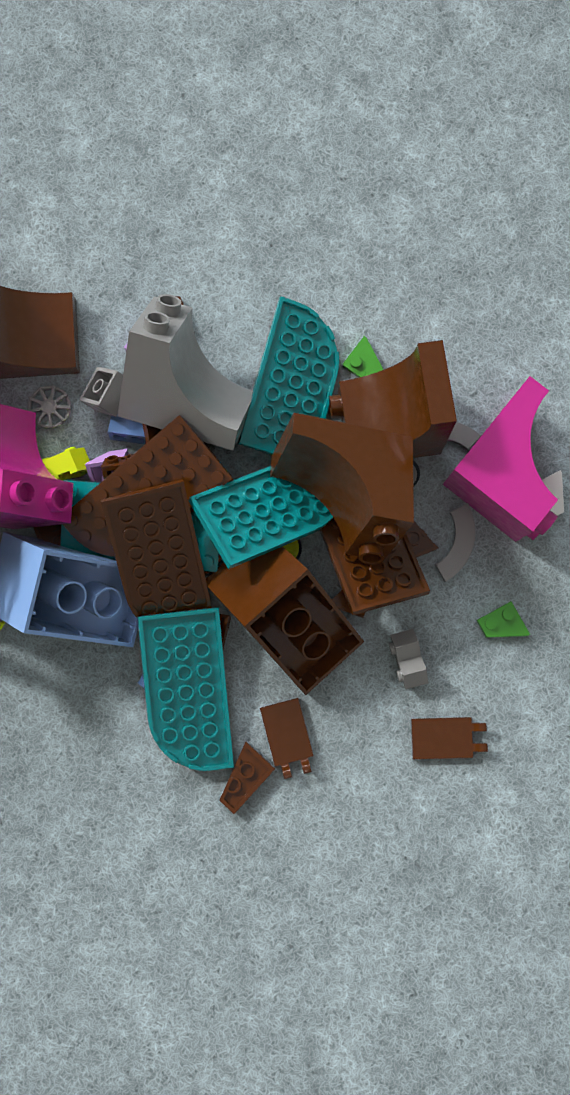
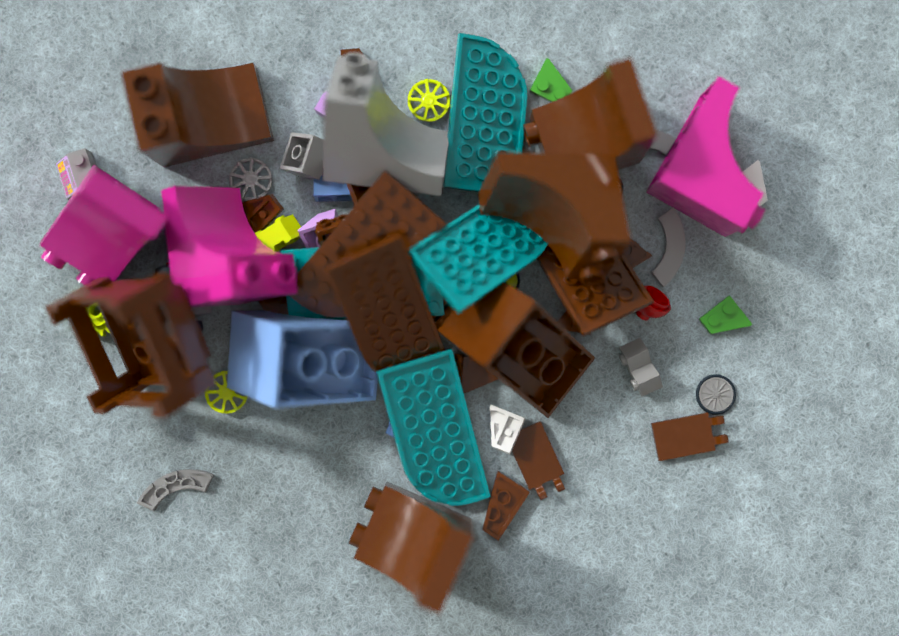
camera: 10 degrees left, 5 degrees up
(53, 439) = (262, 211): none -> reddish brown wing
(142, 799) = (413, 543): none -> reddish brown brick
(238, 640) = (474, 375): none -> reddish brown wing
(240, 358) = (428, 100): none -> neon yellow wheel
(259, 699) = (504, 429): none -> white wing
(435, 601) = (659, 307): none -> red piece
(482, 700) = (715, 394): none -> light grey wheel

